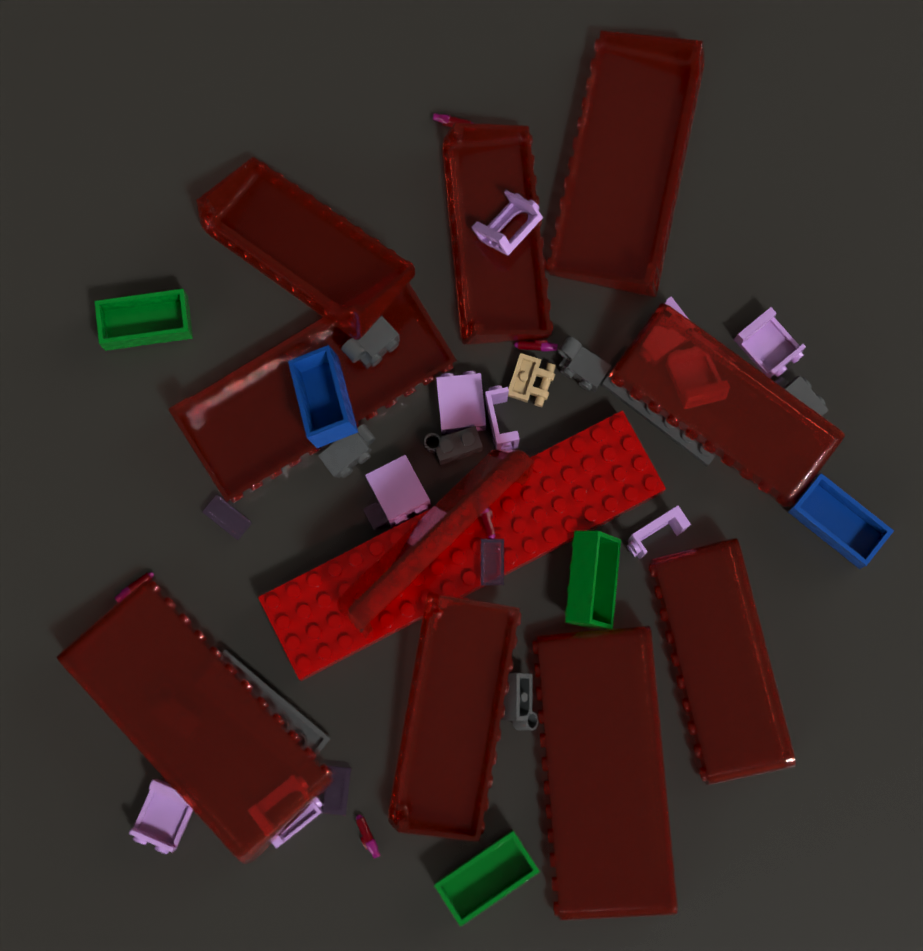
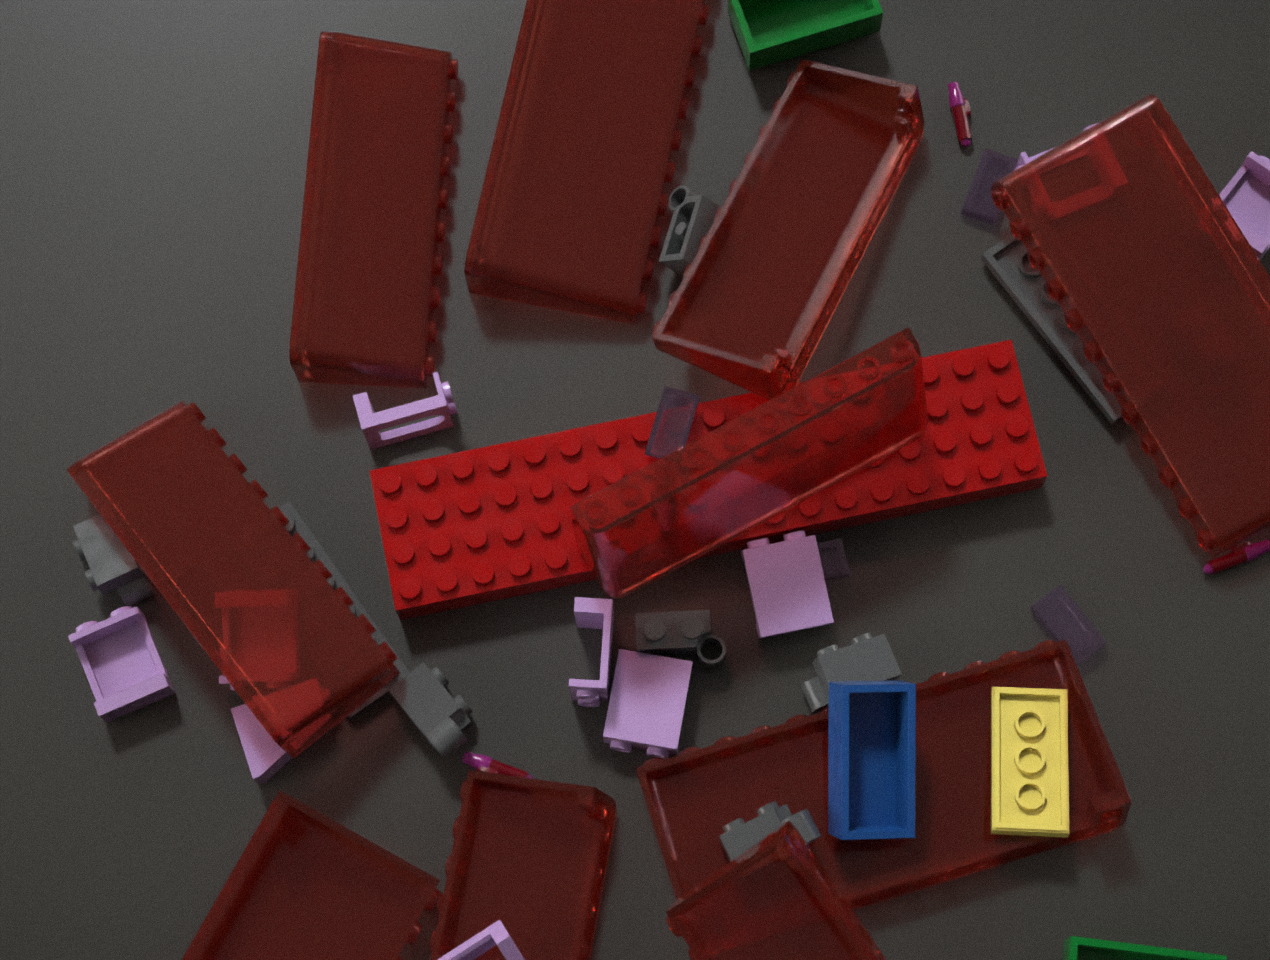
camera: 160 degrees left, 5 degrees down
(232, 426) = (1029, 762): none -> light yellow tile
(524, 377) = (532, 718): tan plate -> none
(593, 580) = (526, 366): green piece -> none
(840, 521) = (120, 354): blue piece -> none

